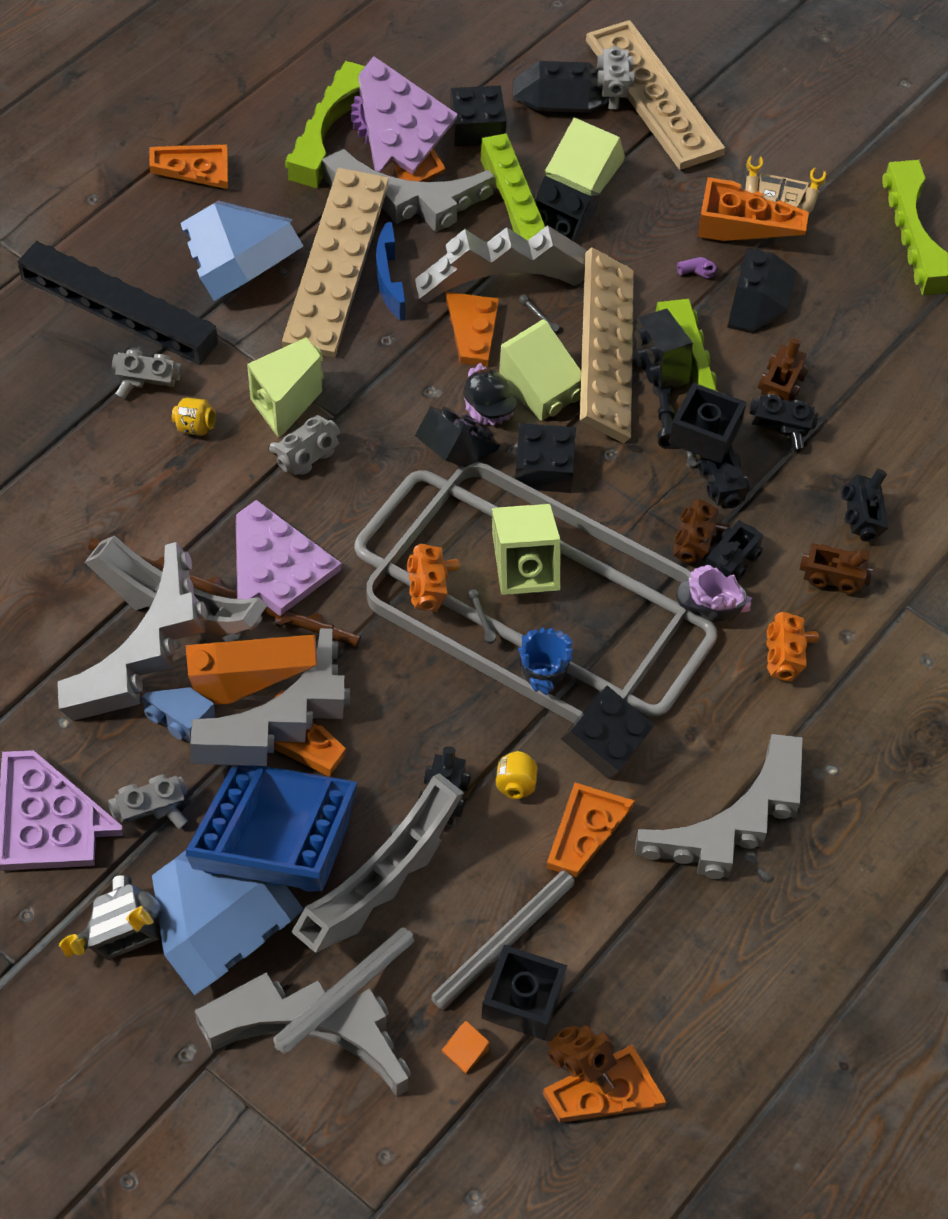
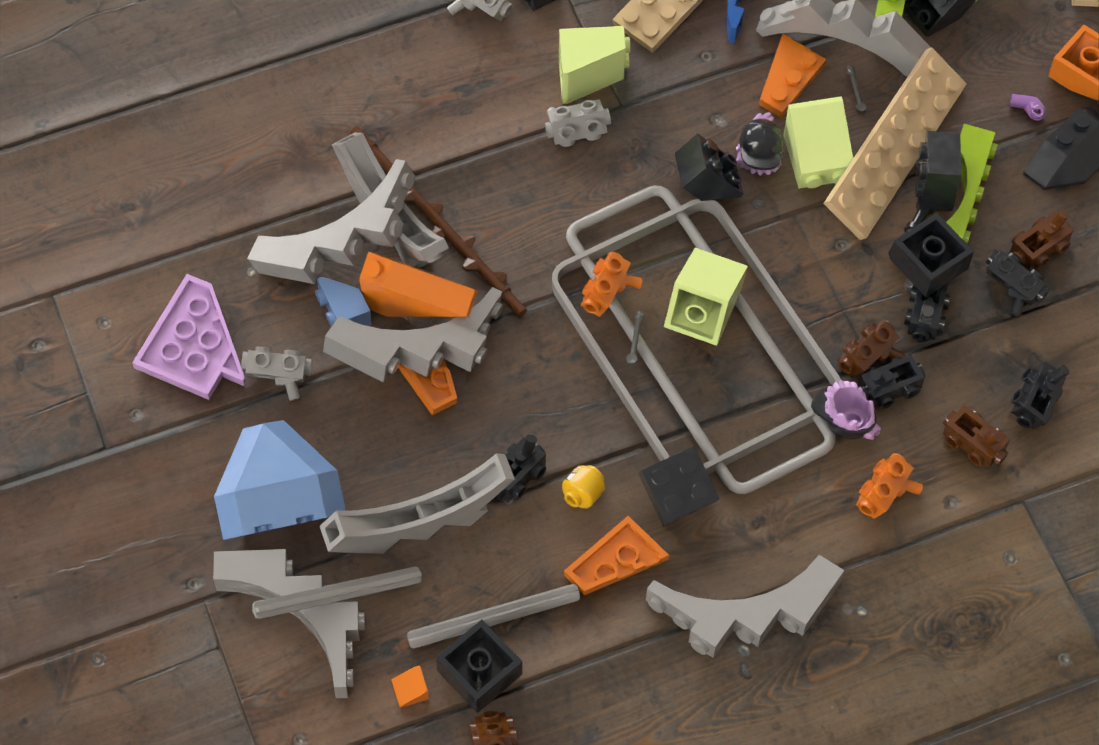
camera: 30 degrees right, 5 degrees up
(118, 922) = (197, 455): dark grey torso -> none
(194, 416) = (498, 55): yellow head -> none
(274, 827) = (356, 434): blue slope -> none
(277, 560) = (494, 212): lavender wing -> none
(545, 457) = (776, 222): black brick -> none
(545, 658) = (662, 399): blue hair -> none

